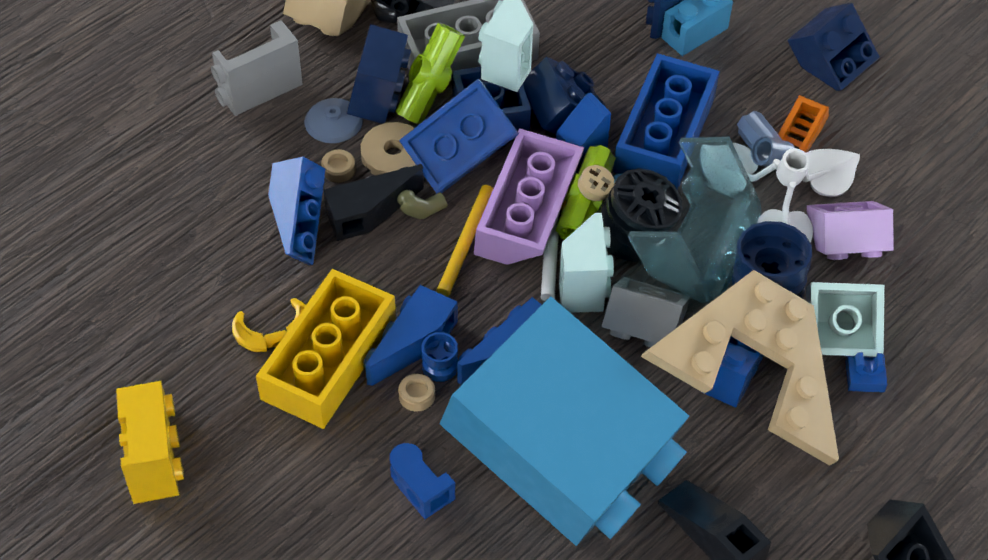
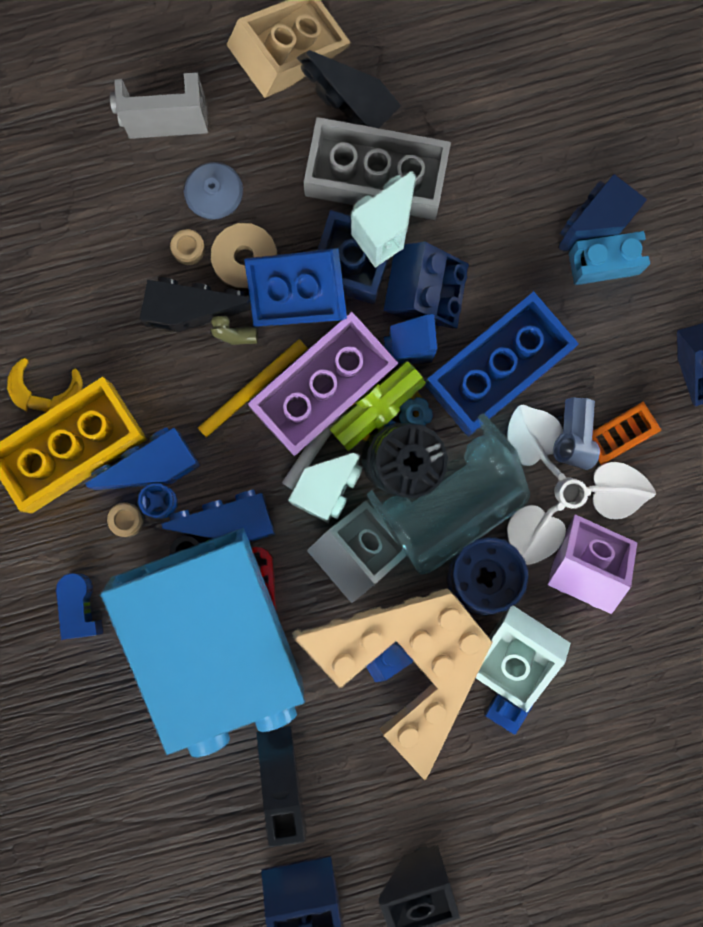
camera: 30 degrees right, 30 degrees up
(296, 204) = (118, 282): blue slope -> none
(379, 74) = (264, 173): dark blue brick -> none
(430, 73) = (310, 201): lime piece -> none
(595, 183) = (383, 410): tan tile -> none

